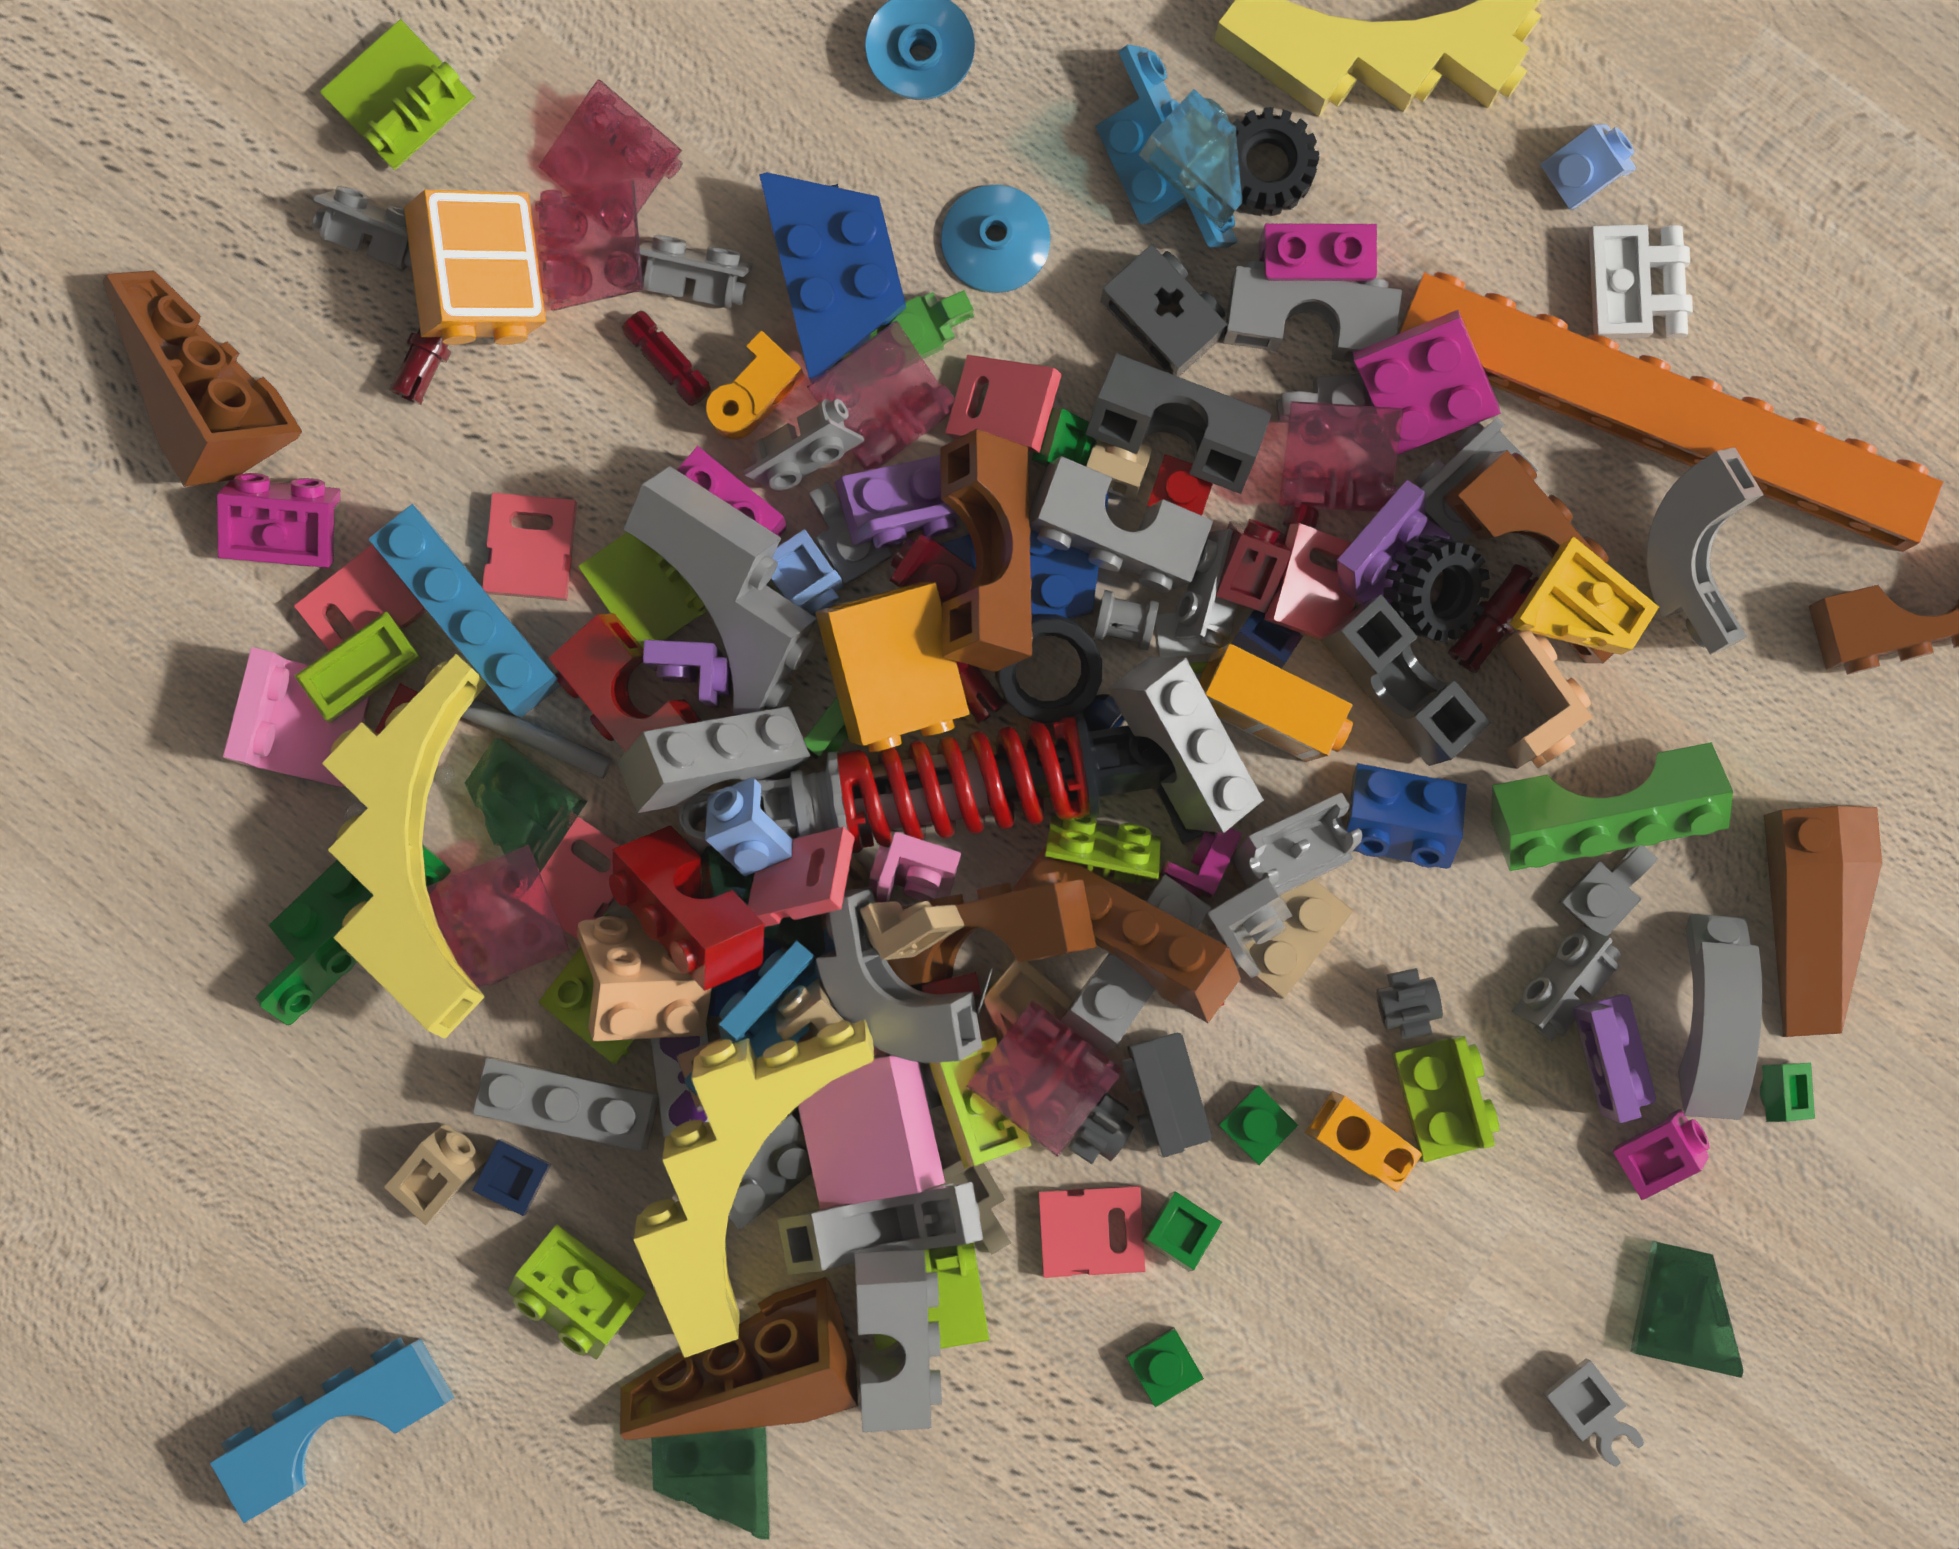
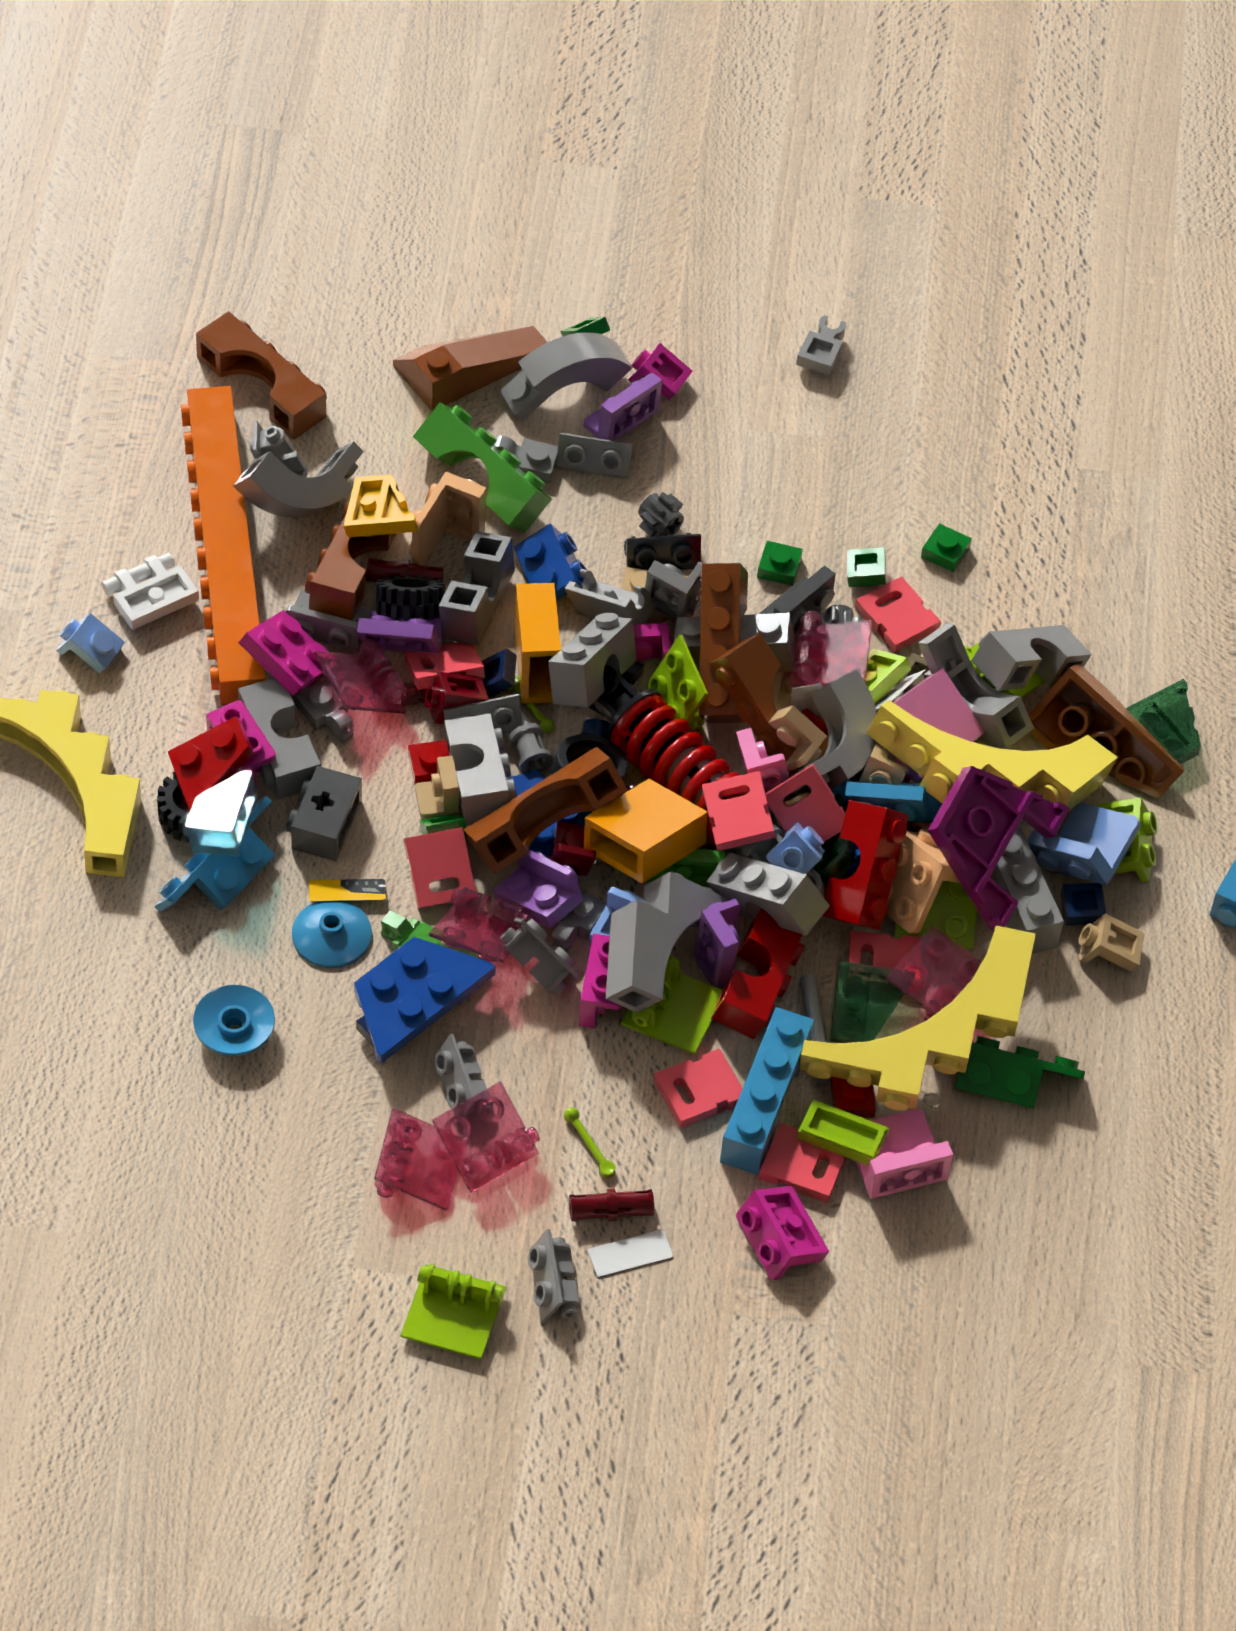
camera: 120 degrees left, 30 degrees down
(198, 397) = (737, 1306): dark orange wedge -> none
(364, 341) = (630, 1253): none -> white sticker
(474, 265) = (544, 1186): light orange brick -> none
(487, 376) = (606, 1167): none -> lime hinge
(577, 1228) = (1088, 843): none -> medium blue bracket
(632, 1072) = (977, 827): none -> magenta wing
(666, 358) = (529, 1069): dark red axle -> none
(743, 405) = (519, 1006): light orange leg -> none
(824, 776) = (741, 818): none -> coral piece
(937, 1126) = (899, 688): none -> white sticker
(1046, 288) = (347, 890): none -> yellow sticker
(1147, 401) = (394, 795): dark grey arch -> none
(1294, 185) = (210, 758): none -> red wing
(1362, 951) = (677, 550): none -> black hinge
(1363, 1141) = (754, 509): light orange leg -> none
(1446, 1098) = (701, 480): lime bracket -> none
(1685, 1312) = (738, 332): clear green wing -> none
(1763, 536) = (276, 441): none -> light grey hinge

